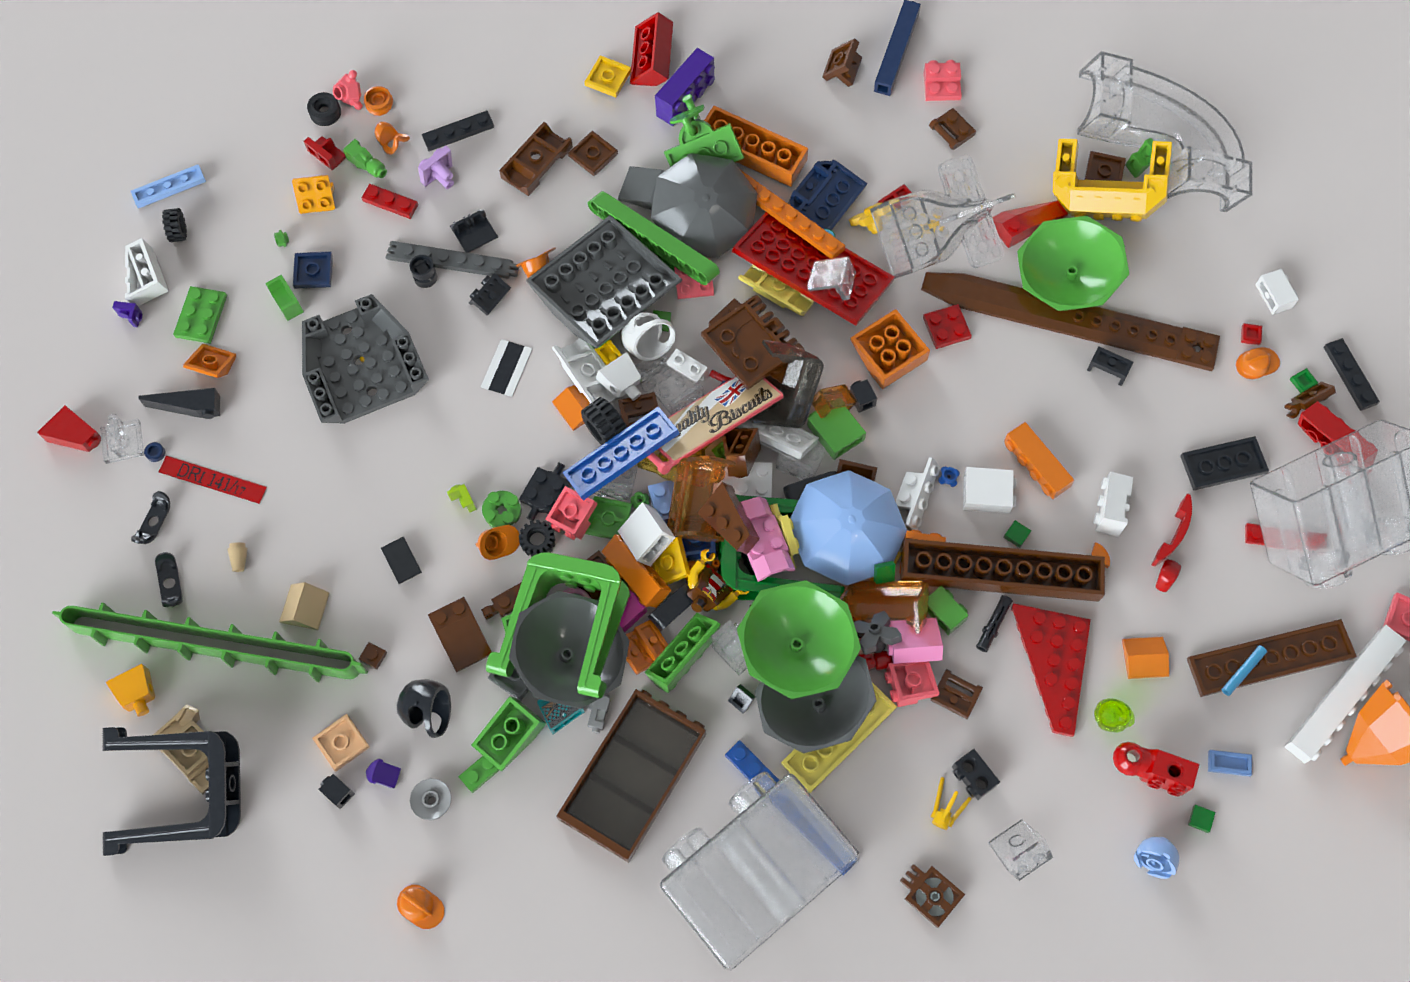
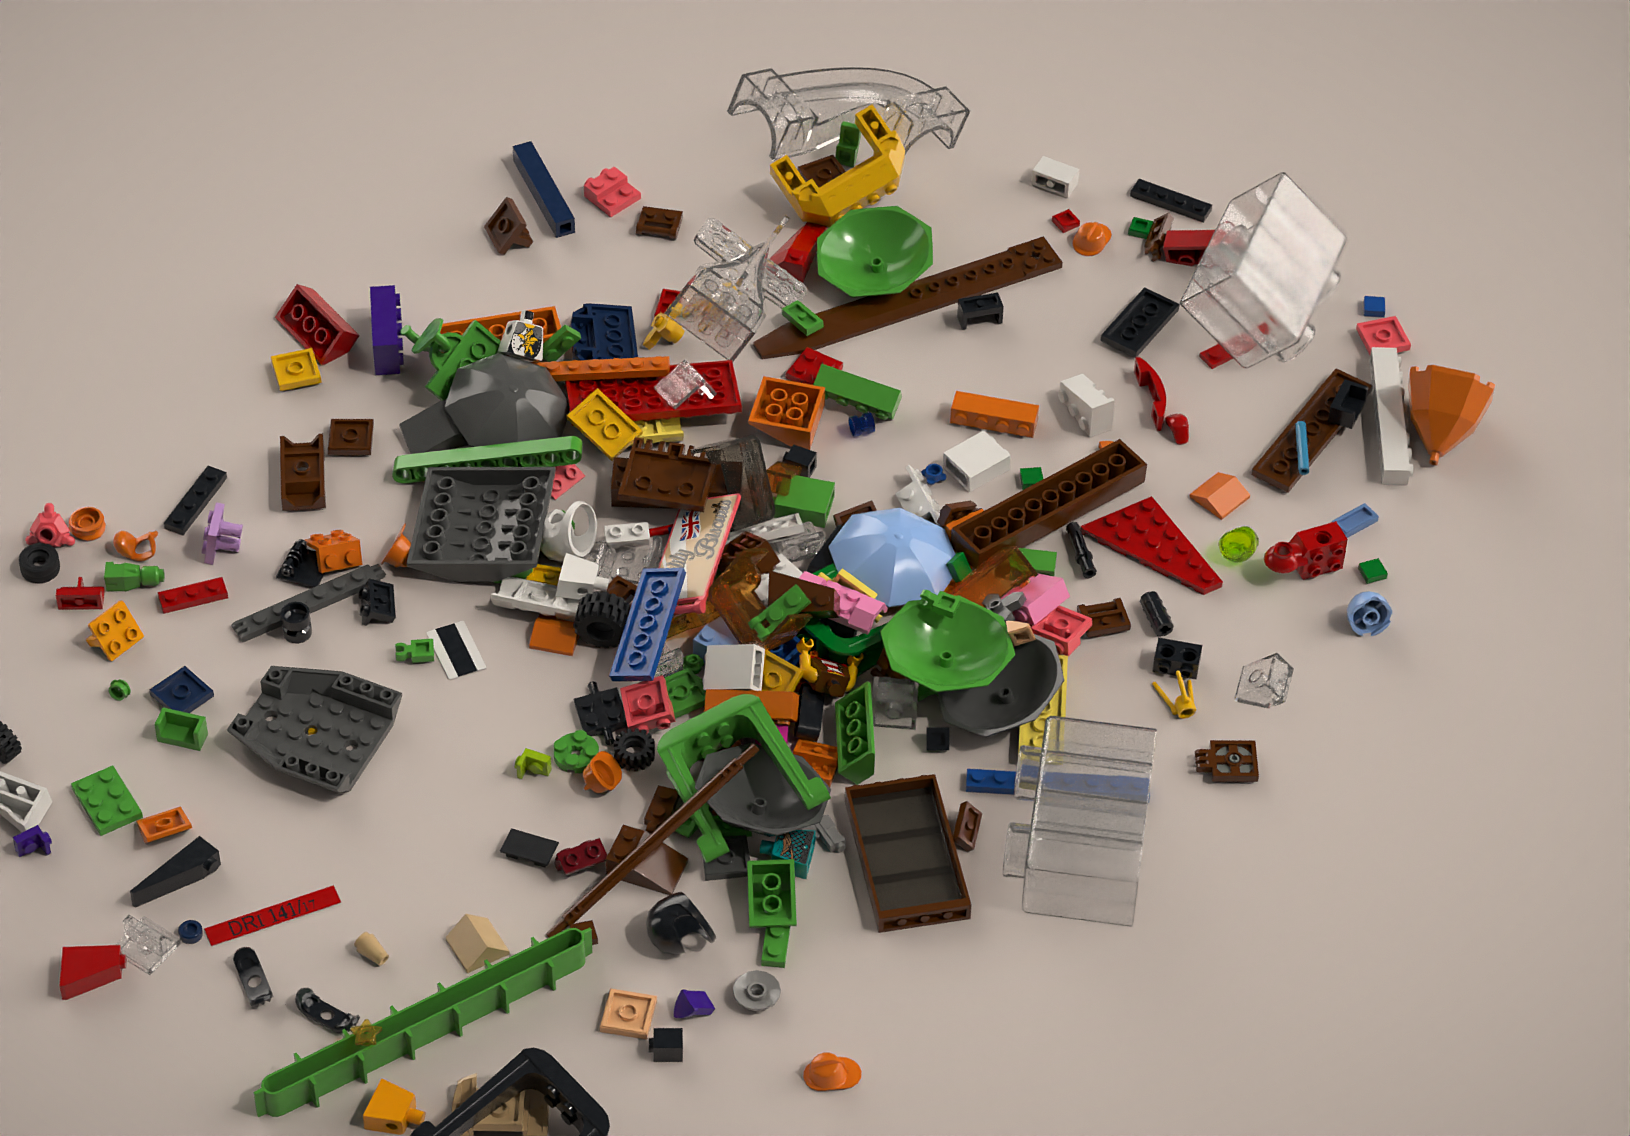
camera: 45 degrees left, 20 degrees down
(154, 630) = (366, 1039): none -> clear yellow plate
(418, 598) = (580, 857): none -> dark red bracket
(462, 630) = (653, 841): none -> reddish brown axle
(478, 351) = (420, 651): none -> bright green plate
(498, 233) = (335, 550): none -> orange bracket
(692, 788) = (967, 826): none -> reddish brown plate
(701, 521) = (789, 603): none -> bright green plate
(748, 268) = (604, 424): none -> yellow plate
(755, 160) = (523, 339): none -> torso
(785, 179) = (560, 343): none -> bright green plate
(823, 604) = (942, 604): none -> bright green plate
(856, 671) = (1019, 632): none -> light nougat slope
(930, 525) = (955, 511): none -> reddish brown plate
(935, 397) = (861, 424): none -> clear blue wheel
(954, 369) = (858, 392): none -> bright green brick
(973, 279) = (802, 317): none -> bright green plate
(997, 723) = (1156, 613): none -> black axle
(1316, 661) = (1348, 404): none -> black panel

